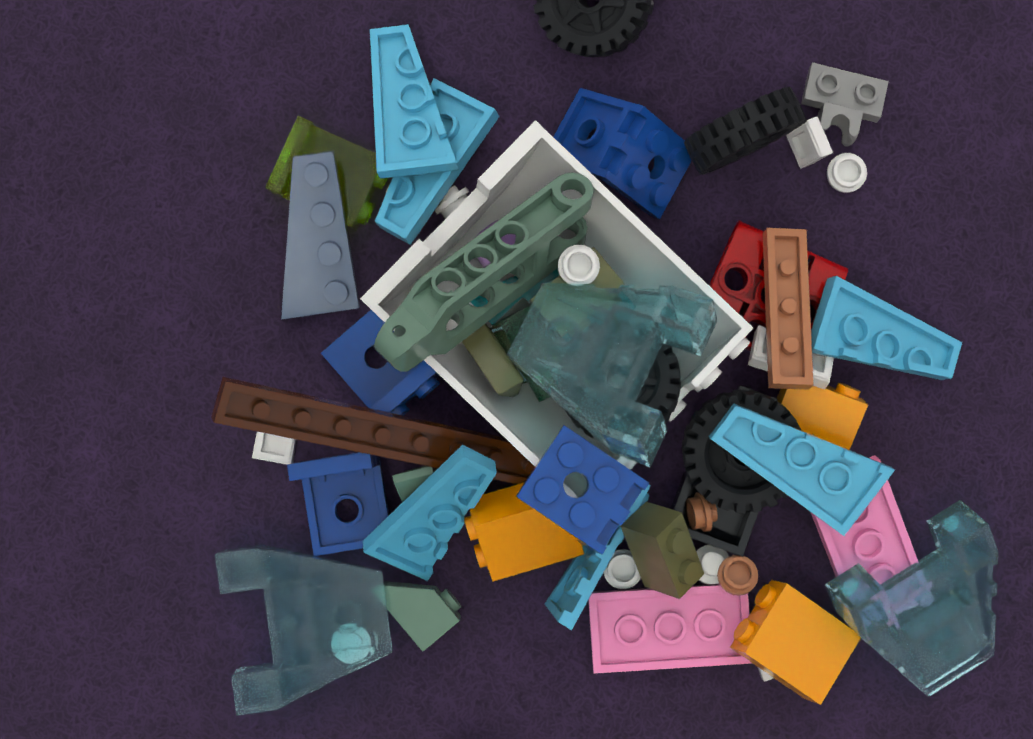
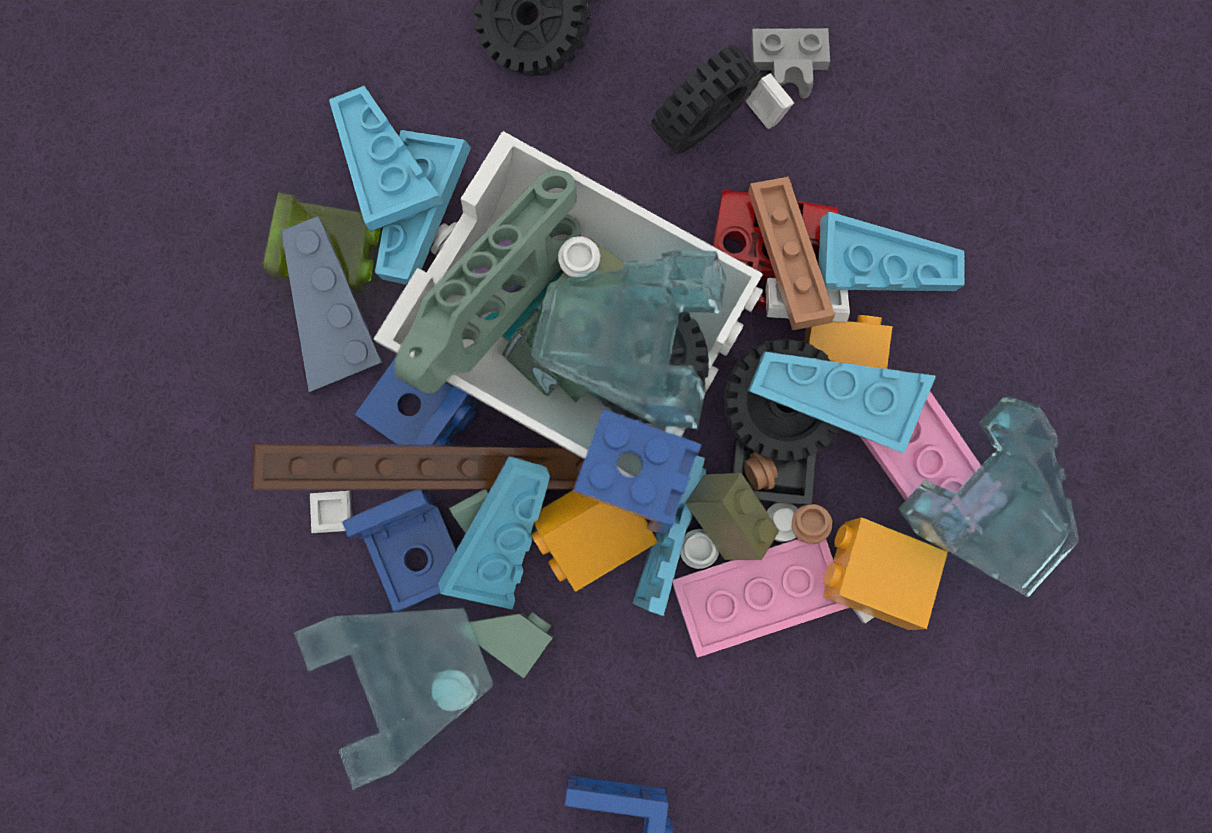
camera: 20 degrees left, 5 degrees down
(494, 362) = (521, 372): olive slope -> none
(623, 148) = (595, 143): blue bracket -> none
(846, 172) = (812, 121): white plate -> none

